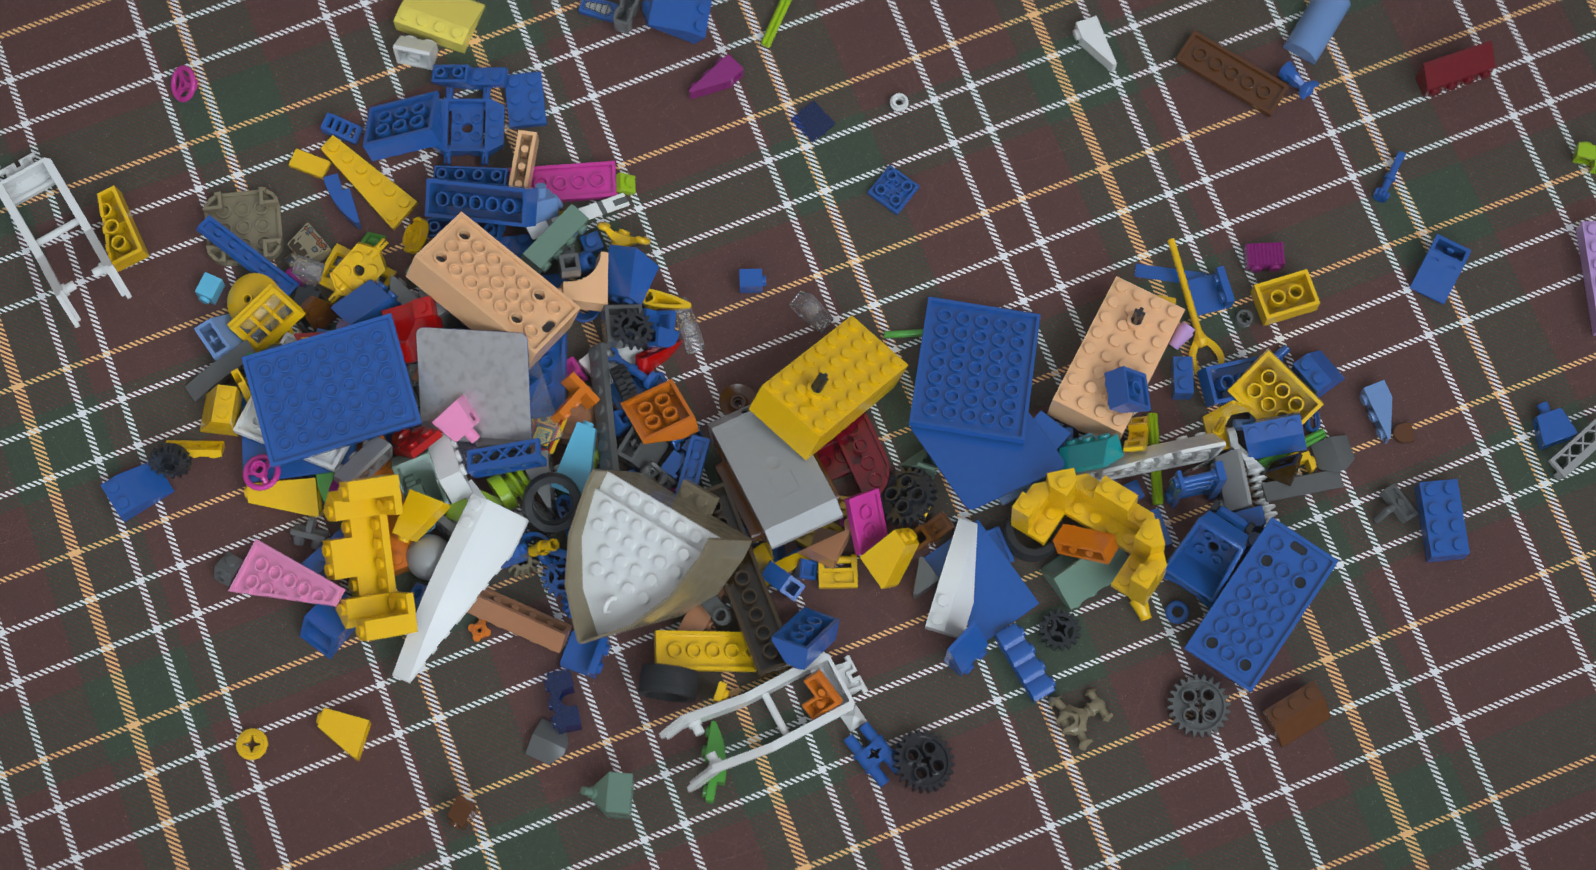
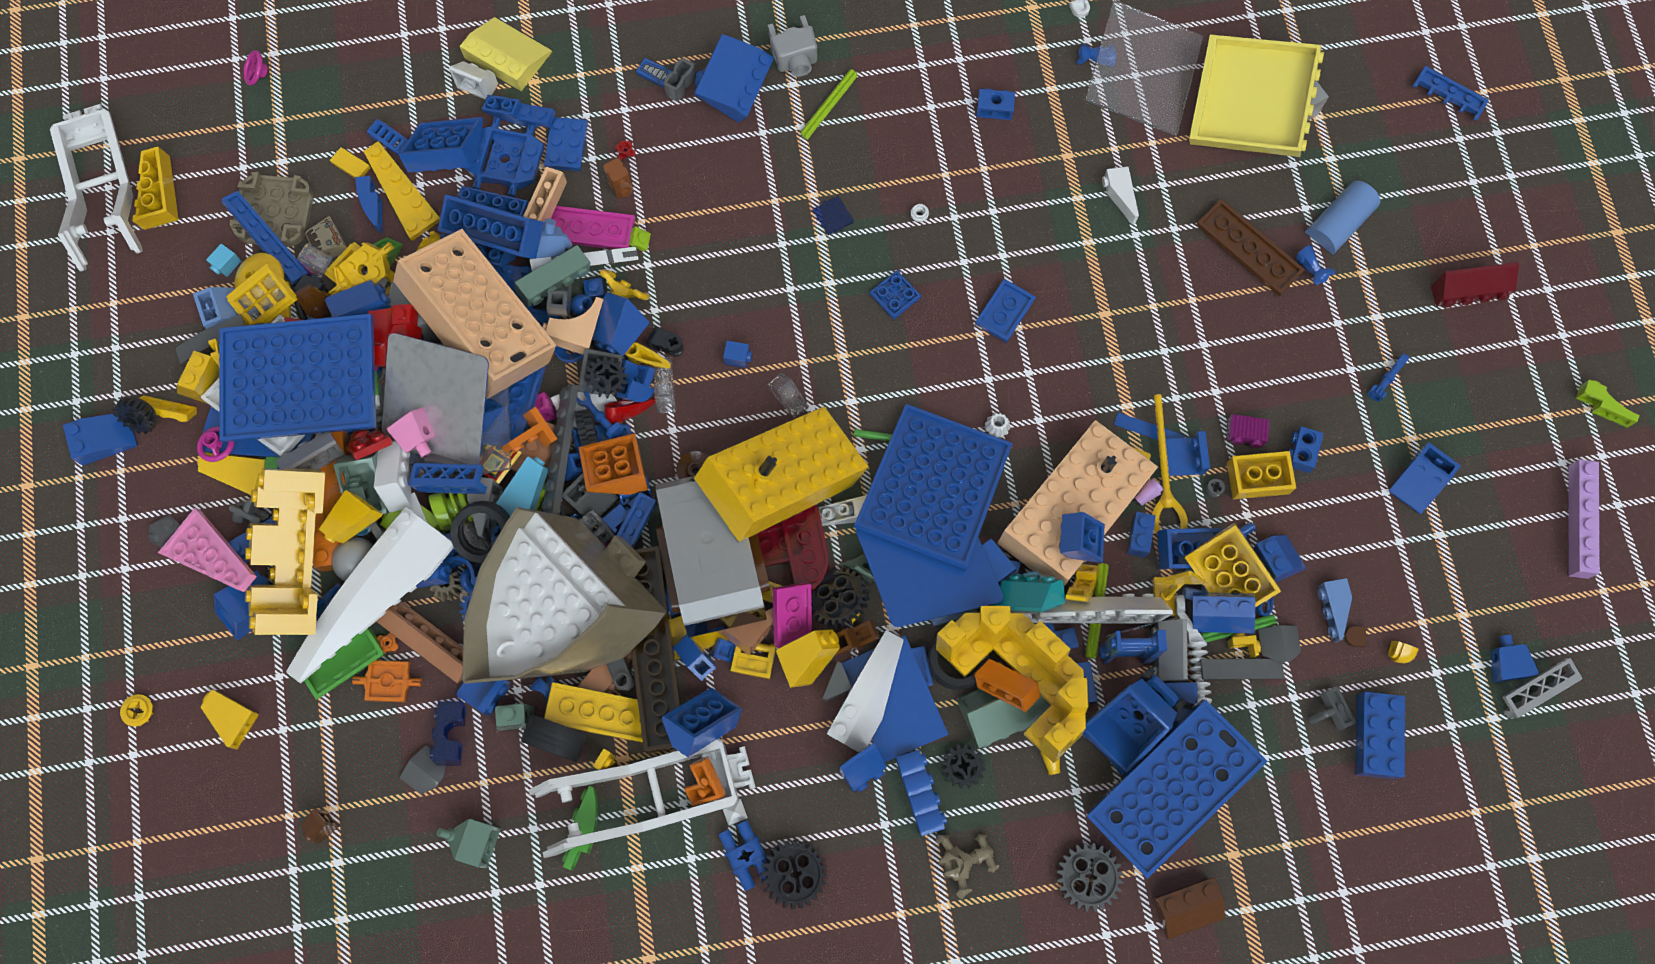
camera: 15 degrees right, 0 degrees up
(446, 658) = (346, 663): none -> bright green slope
(489, 666) = (387, 681): none -> orange plate
(543, 547) = (466, 574): yellow pin -> none
(587, 90) = (625, 145): none -> red plate
(590, 126) = (618, 178): none -> dark orange brick
(621, 673) = (513, 716): none -> sand green torso
(645, 639) = (543, 686): none -> blue piece
(675, 282) = (663, 341): none -> black piece
(720, 77) = (753, 157): magenta slope -> none
(892, 414) = (841, 512): none -> white slope
(1005, 184) = (1005, 310): none -> blue plate
(1022, 305) = (995, 430): none -> white piece
(1177, 620) = (1096, 772): blue piece -> none
(1284, 469) = (1226, 648): dark brown slope -> none
(1326, 264) = (1308, 451): none -> blue brick
(1449, 439) = (1402, 652): none -> yellow piece

